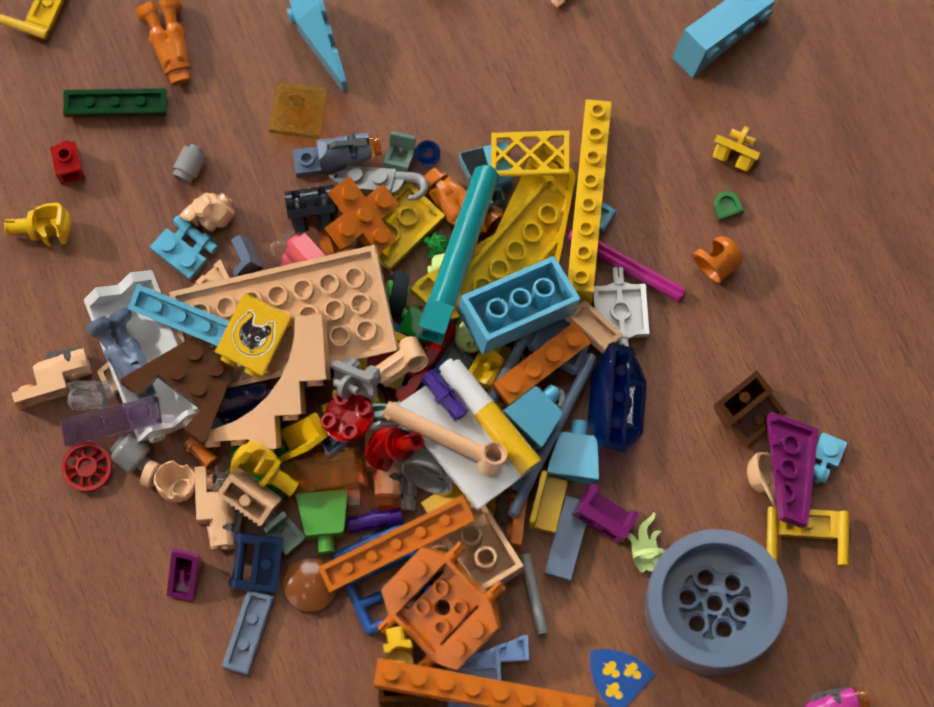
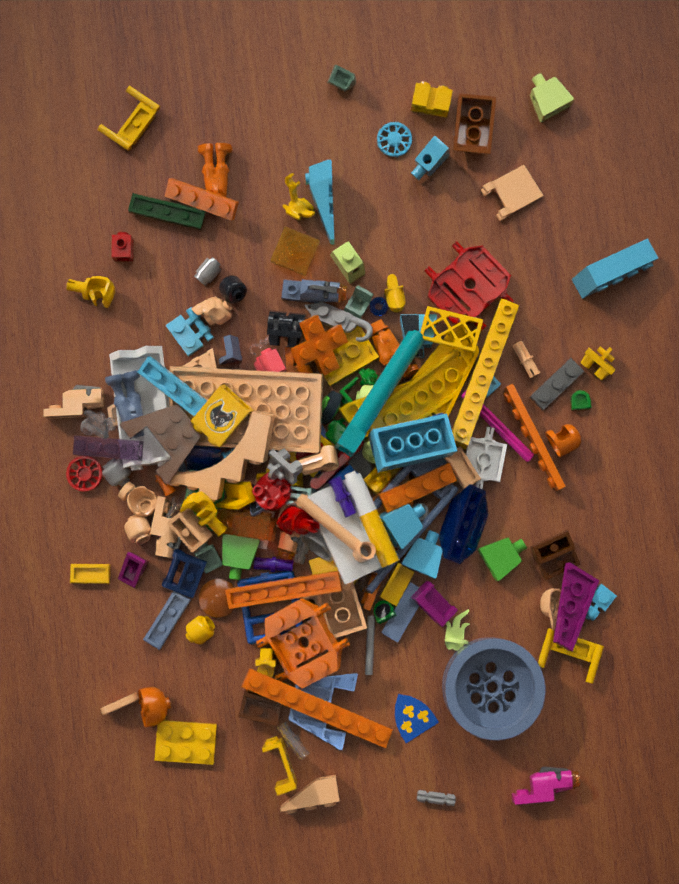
camera: 10 degrees right, 10 degrees up
(127, 598) = (90, 573): none -> yellow tile
(157, 74) = (201, 199): none -> orange plate
(178, 520) = (138, 529): none -> light nougat head
(228, 177) = (232, 289): none -> black head
(285, 55) = (297, 207): none -> yellow piece
(296, 632) = (200, 630): none -> yellow head
(369, 102) = (348, 261): none -> yellowish green torso
(413, 265) = (346, 399): none -> green bracket
(444, 131) = (394, 294): none -> yellow arm
(538, 68) = (472, 264): none -> red piece
(540, 543) = (384, 611): none -> tile
(640, 170) = (526, 359): none -> light nougat axle
(672, 260) = (530, 431): none -> orange plate
(678, 430) = (502, 556): none -> bright green torso
(689, 192) = (556, 384): none -> dark grey plate

